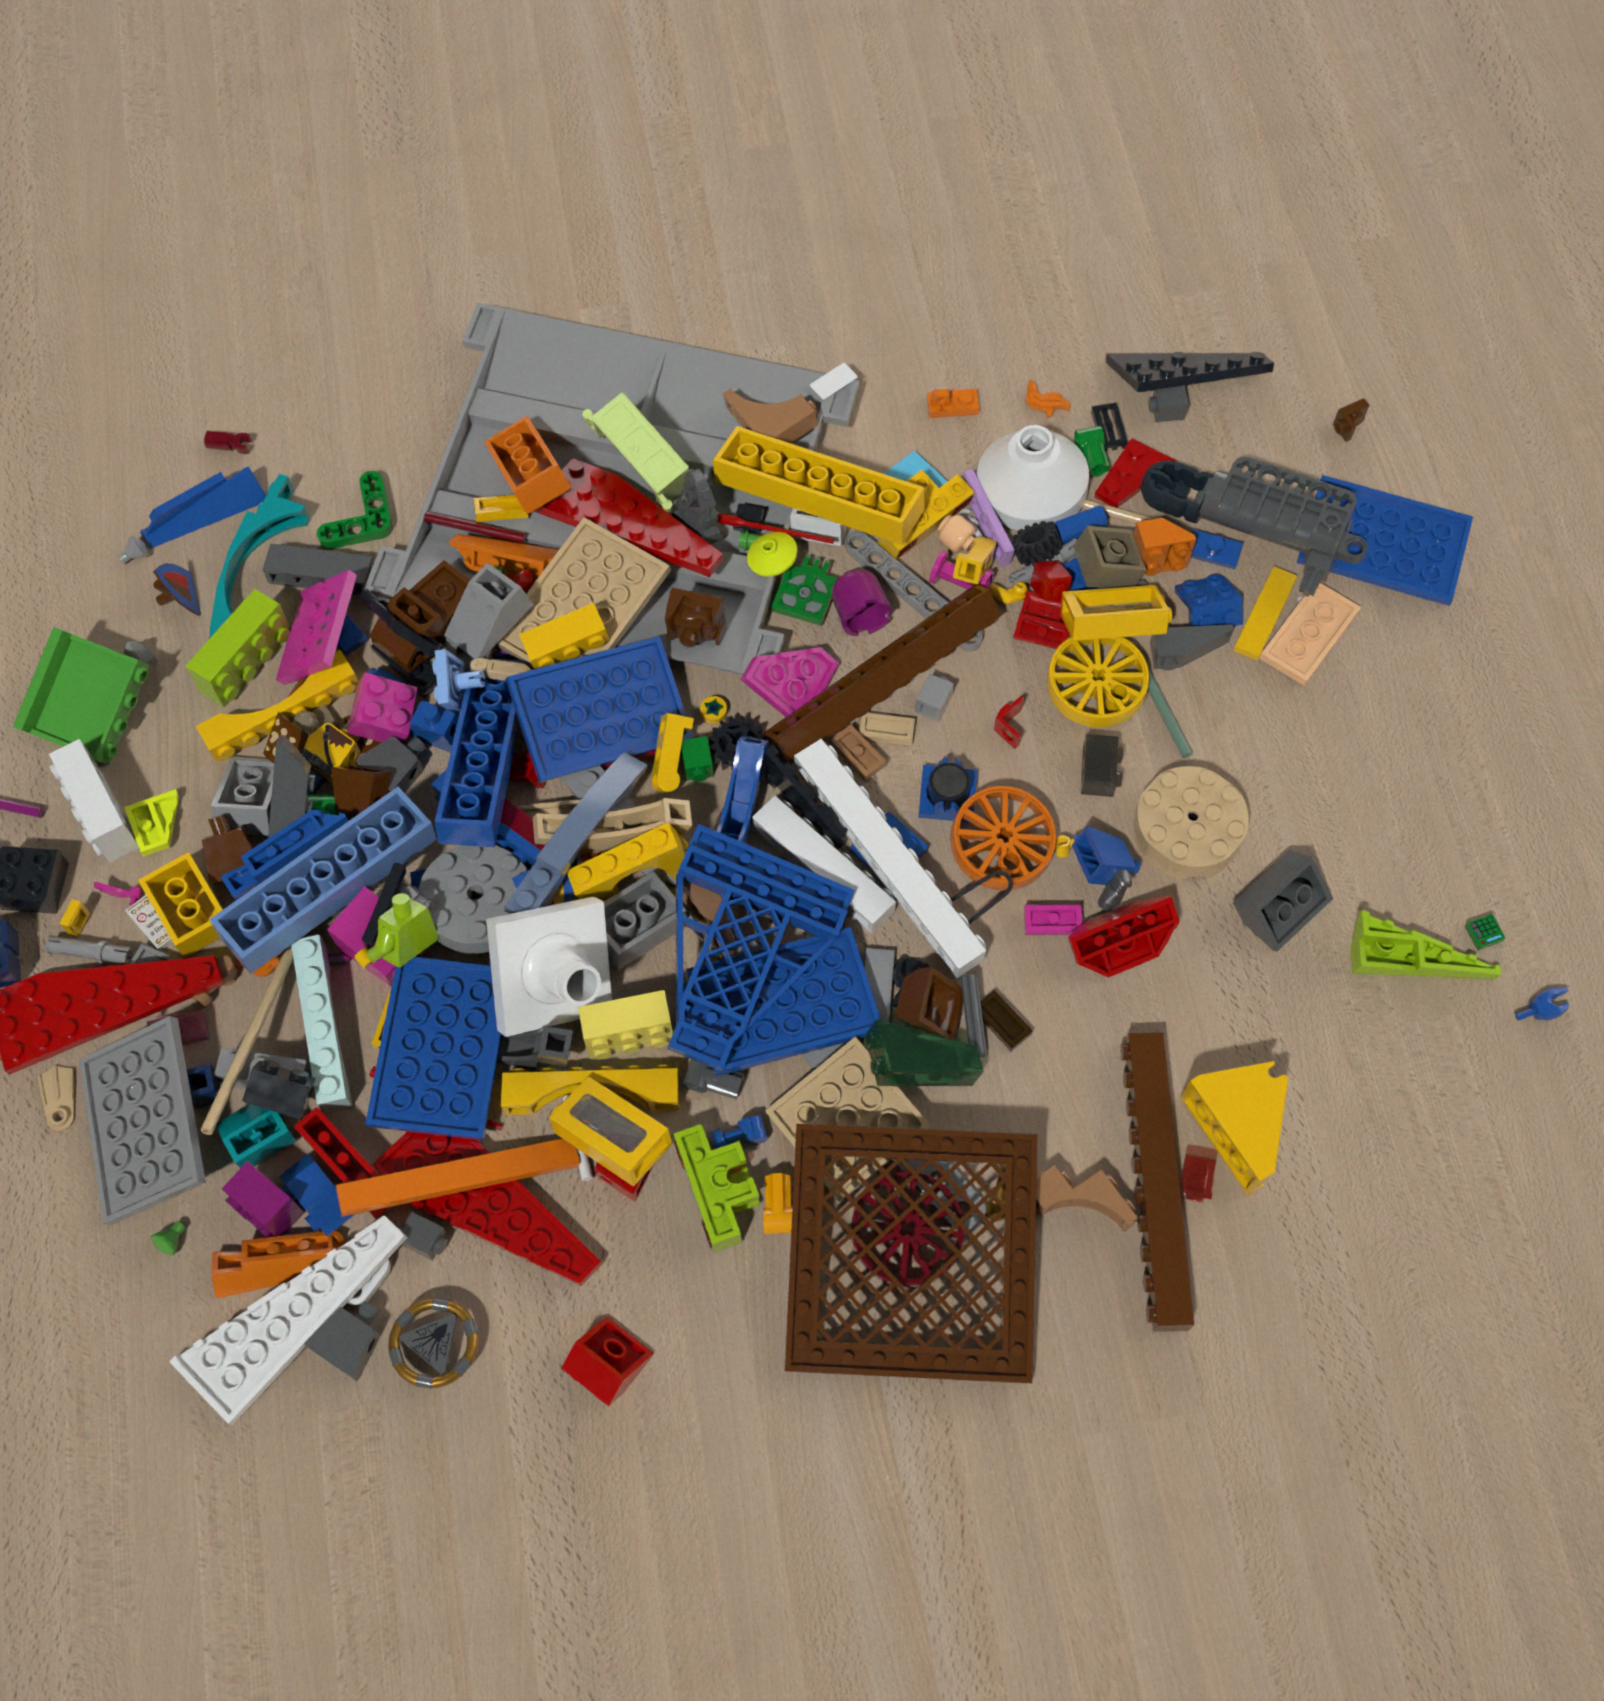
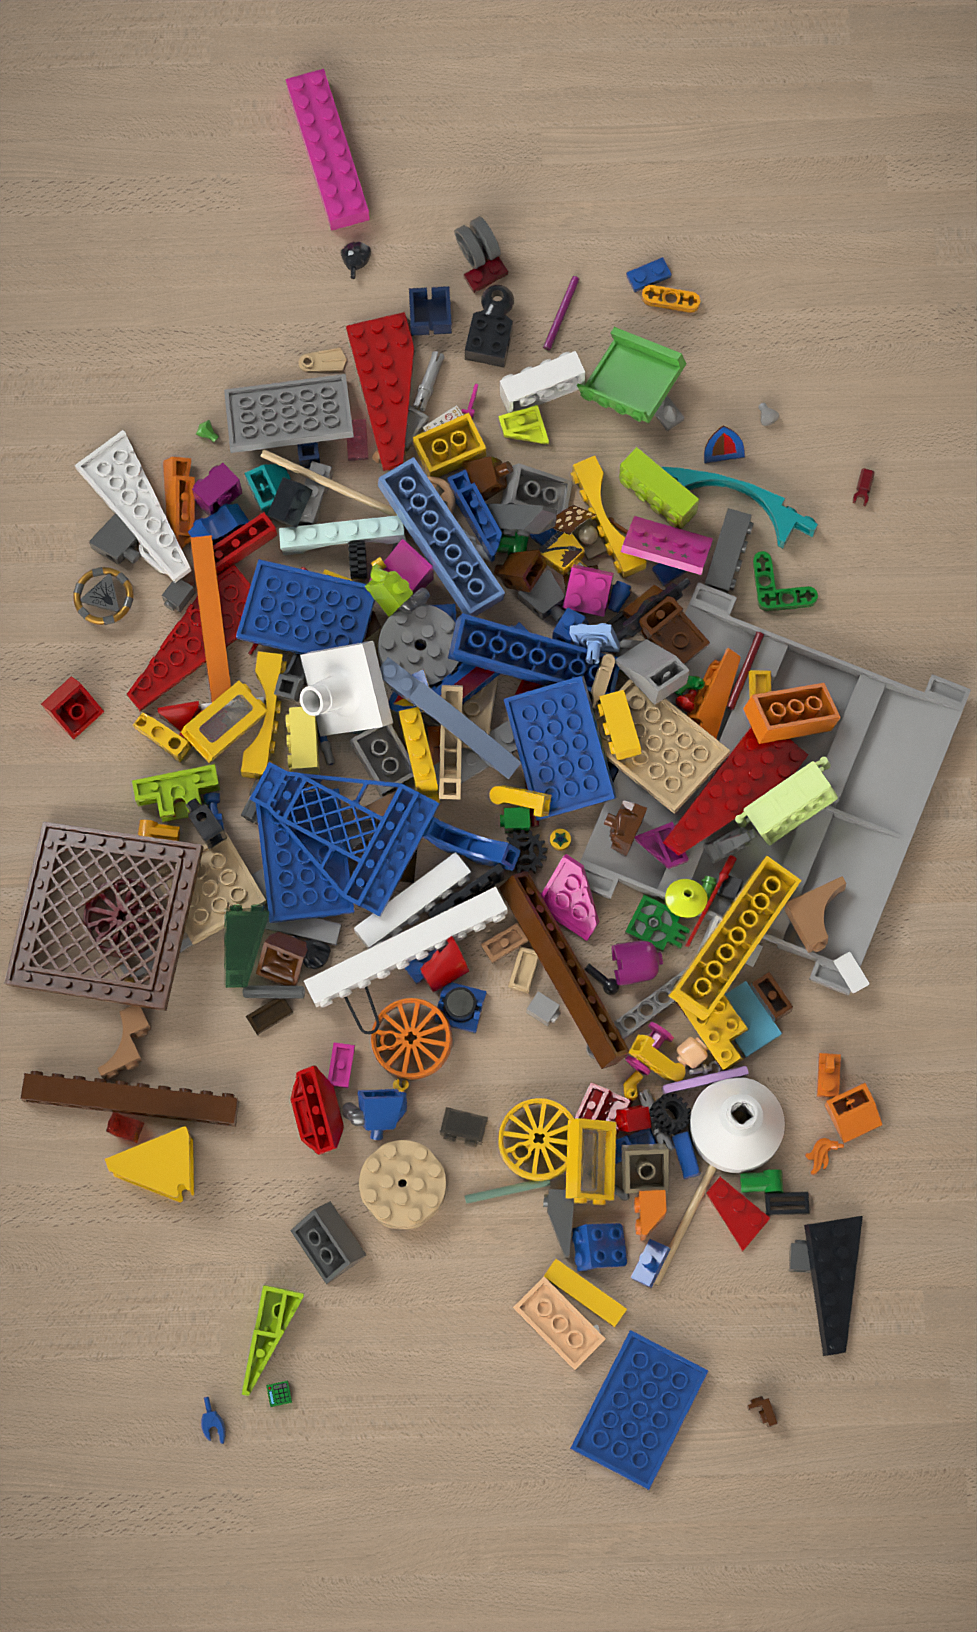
camera: 100 degrees right, 10 degrees up
(74, 918) = (454, 371): yellow tile -> none
(203, 506) = (802, 468): blue wedge -> none
(357, 996) = (357, 560): none -> black tyre
(384, 903) = (414, 578): black tile -> none
(603, 1203) = (179, 714): none -> red slope
(636, 1223) = (162, 736): none -> yellow leg
(716, 585) = (652, 842): none -> magenta wing
(771, 1119) = (209, 829): none -> black torso
(879, 453) = (771, 997): none -> reddish brown brick
(887, 634) = (609, 984): none -> black bar
(904, 810) = (444, 966): none -> red slope
(991, 370) = (853, 1113): none -> orange slope
(1004, 715) = (520, 1061): red bracket -> none
(1262, 510) = (668, 1304): dark grey piece -> none

